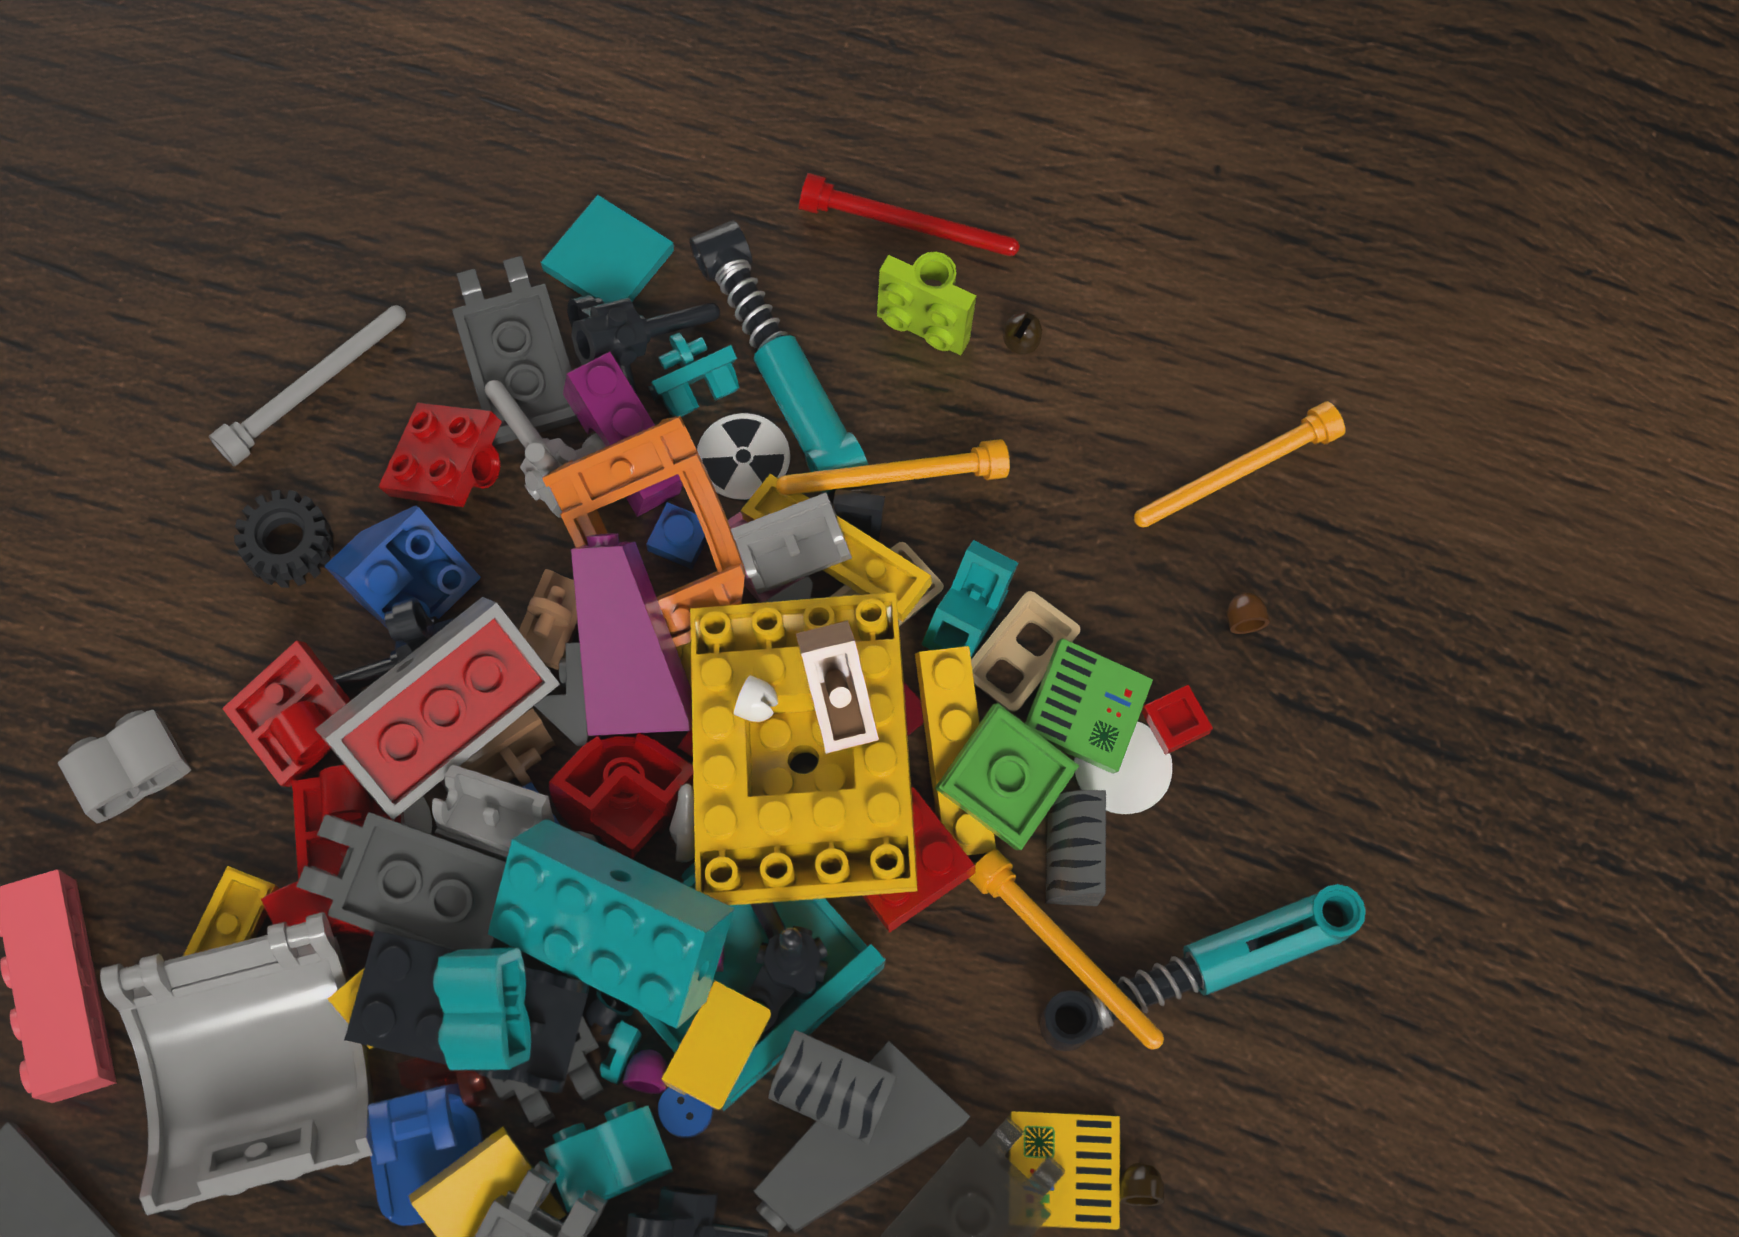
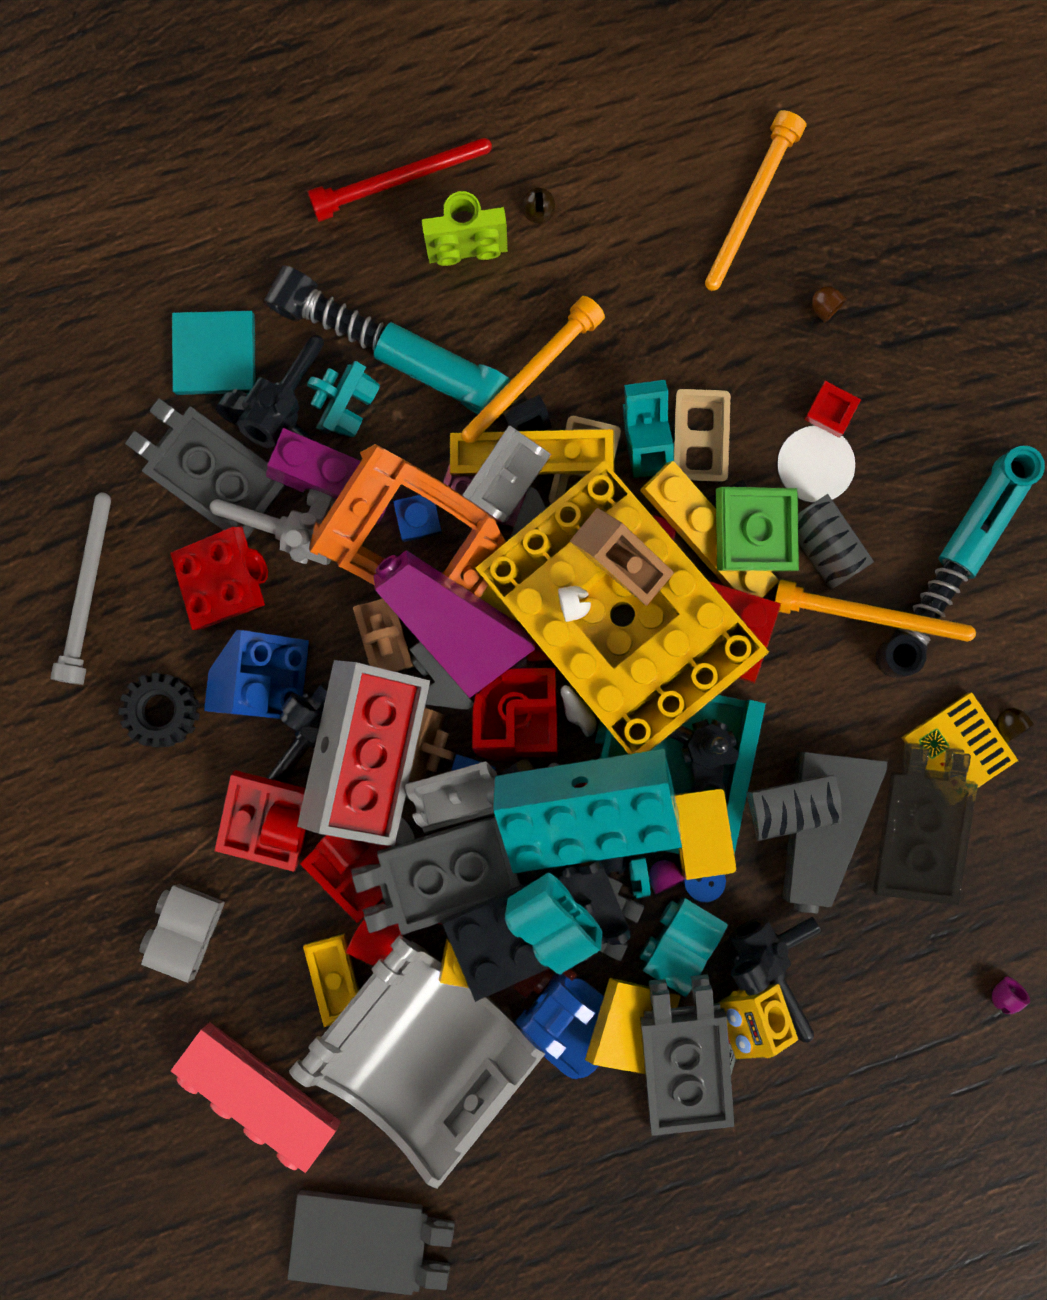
camera: 30 degrees left, 15 degrees up
(742, 453) = (416, 428): sticker -> none
(1088, 705) = (770, 442): bright green tile -> none

